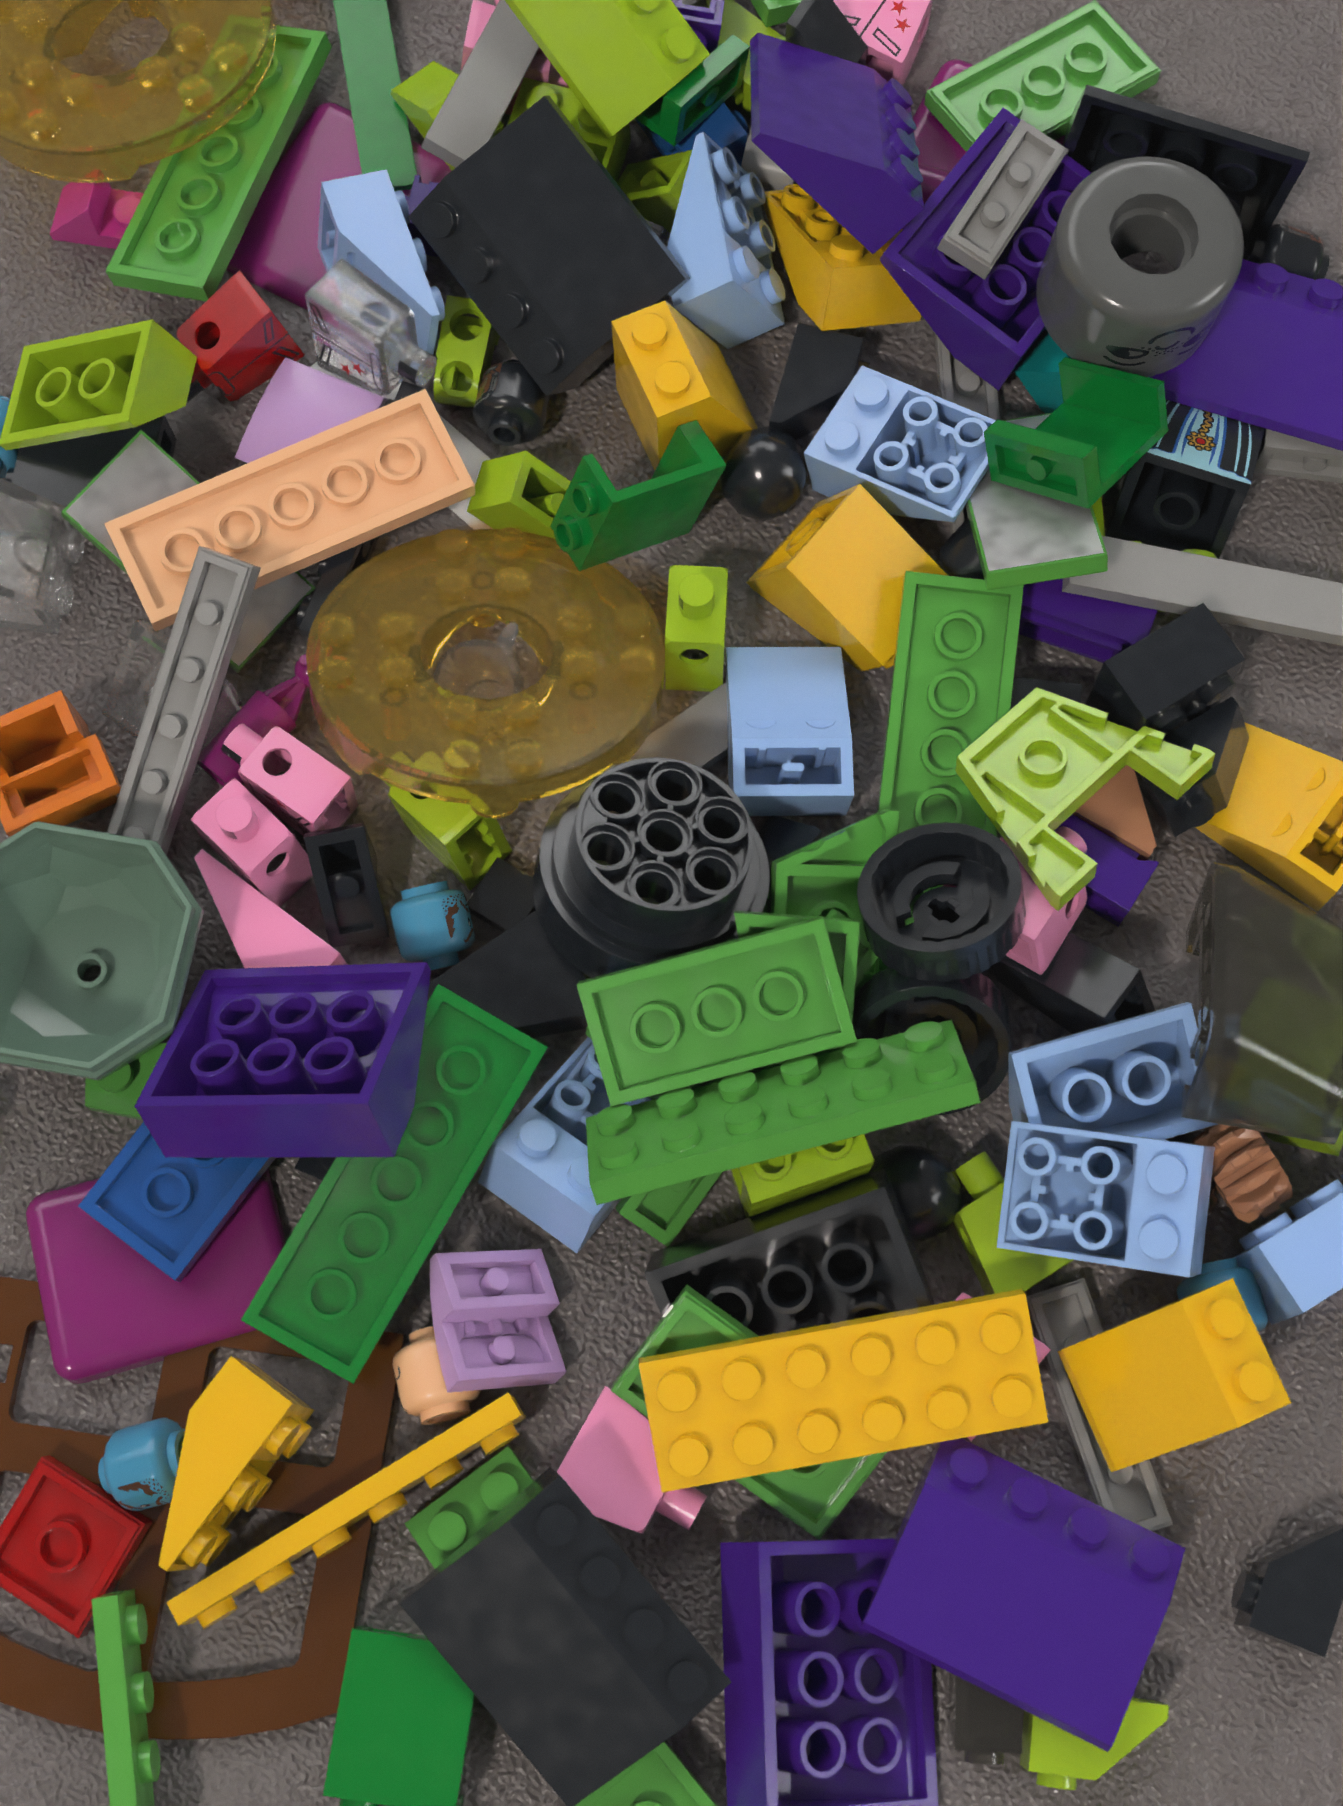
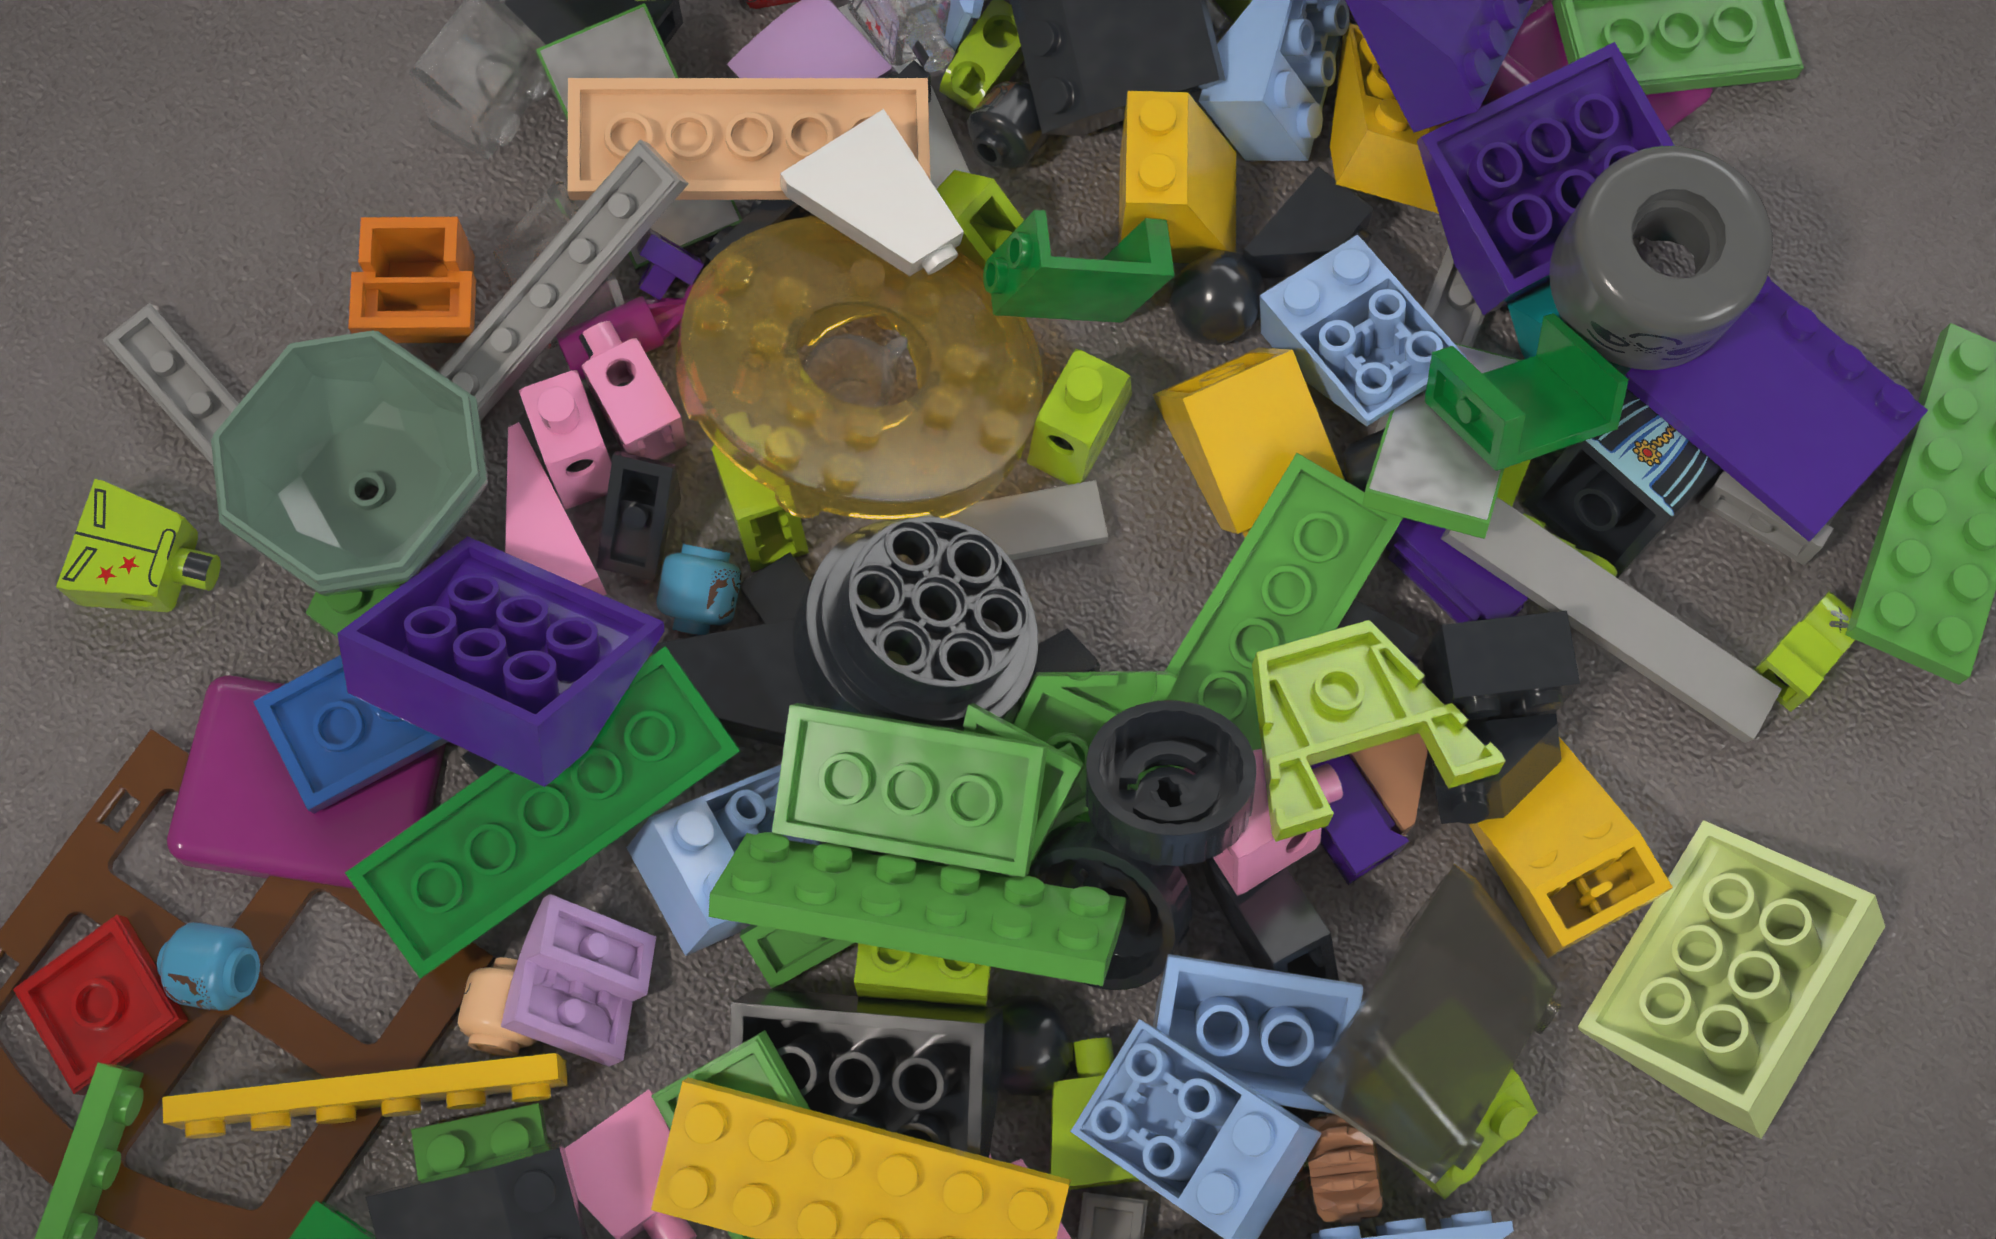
camera: 20 degrees right, 0 degrees up
(224, 1459) = (274, 992): yellow slope -> none
(266, 654) = (665, 263): none -> dark purple tile
(433, 508) = (877, 196): none -> white slope
(789, 731) = (1117, 554): light blue slope -> none
(1002, 199) = (1567, 132): light grey tile -> none
(1247, 168) = (1809, 210): black slope -> none
(1291, 249) = (1837, 304): black head -> none

